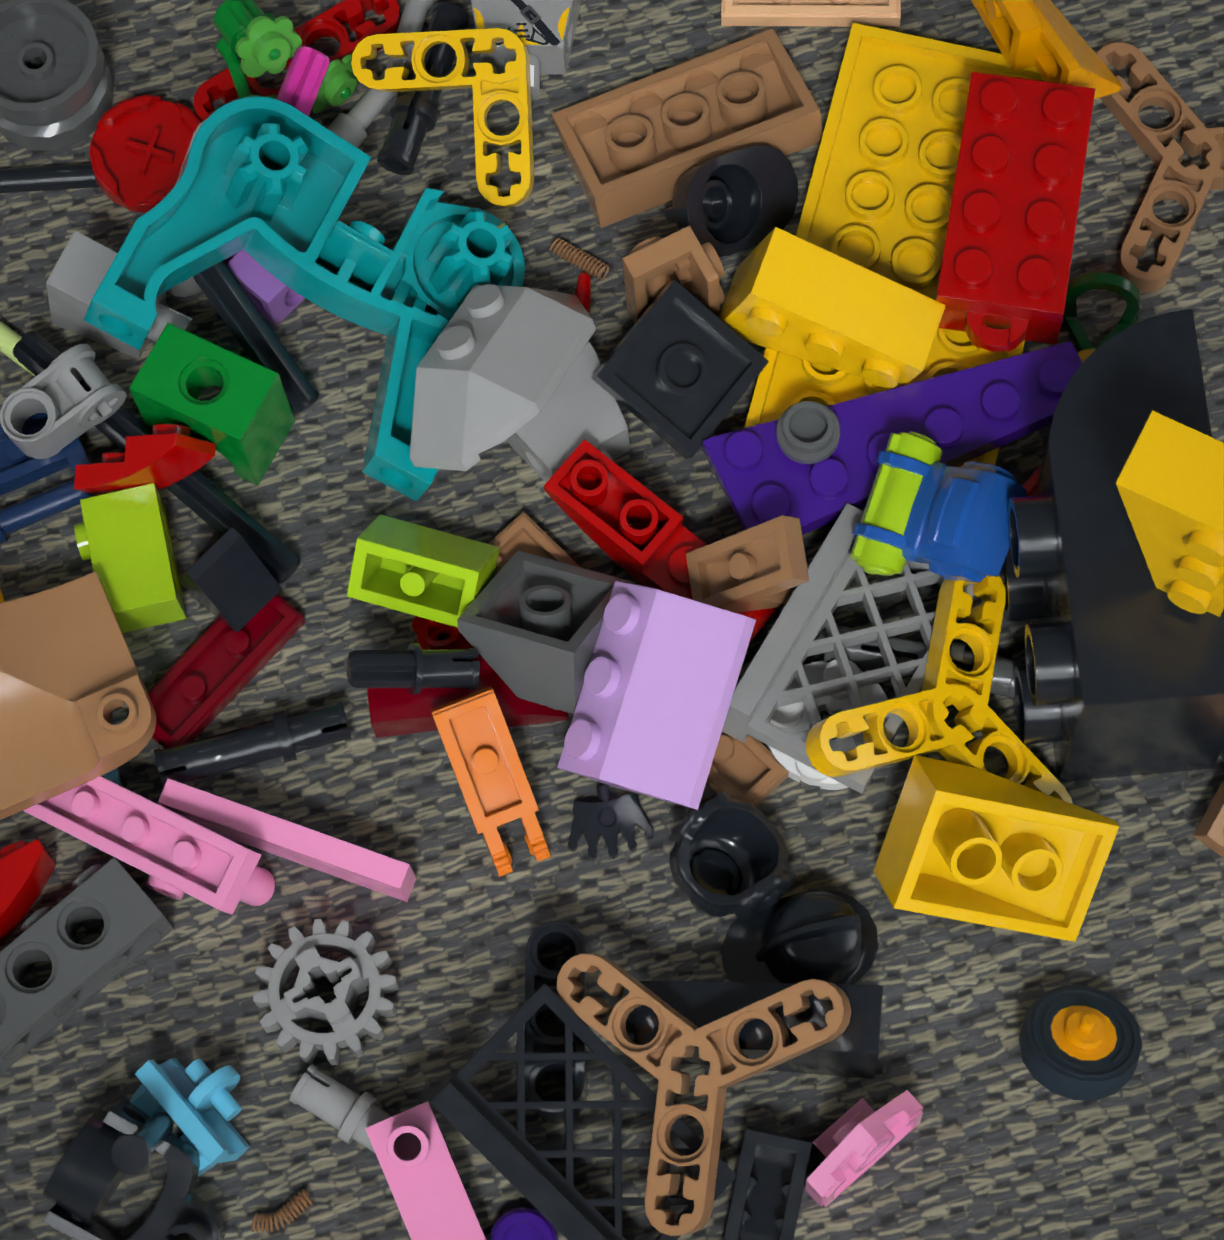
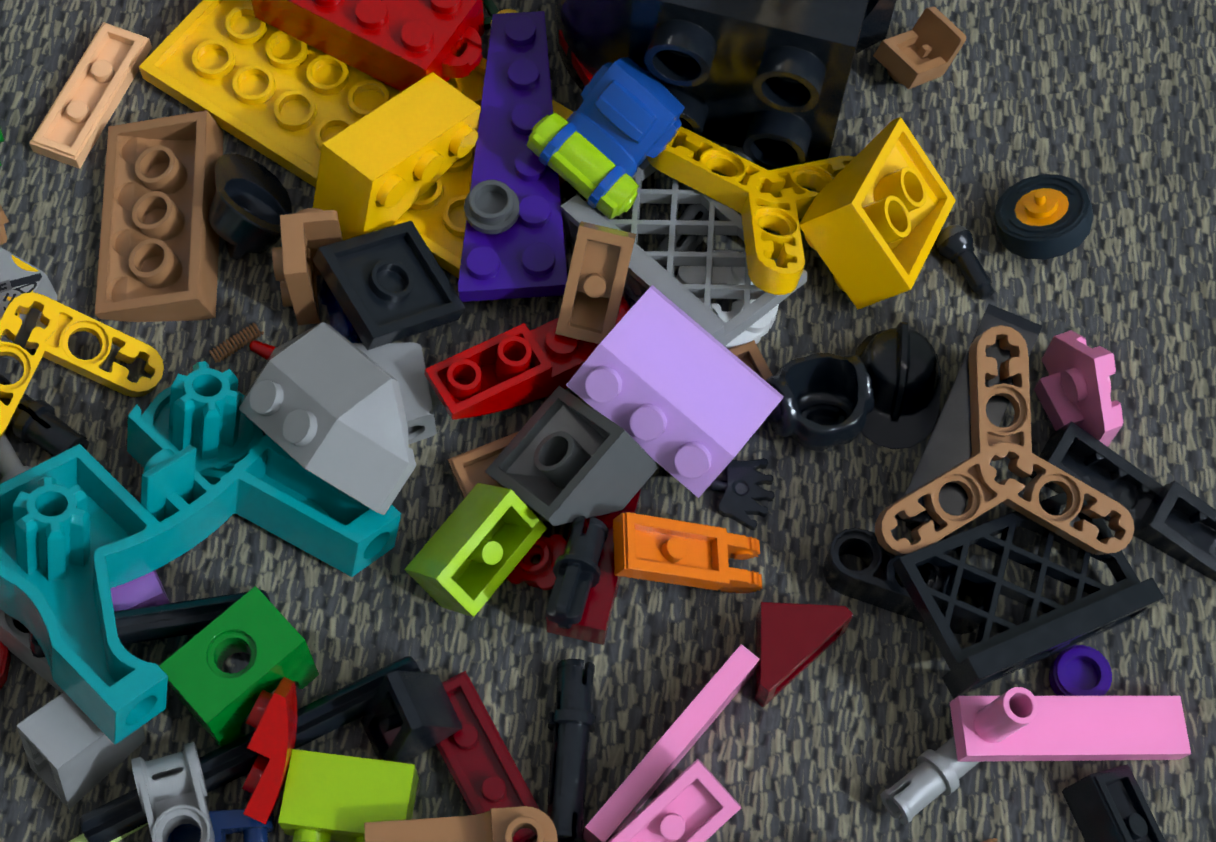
camera: 80 degrees left, 5 degrees down
(303, 1001) = (846, 755): light grey gear -> none
(439, 919) = (790, 640): none -> dark red slope
(1007, 959) = (956, 245): none -> black piece

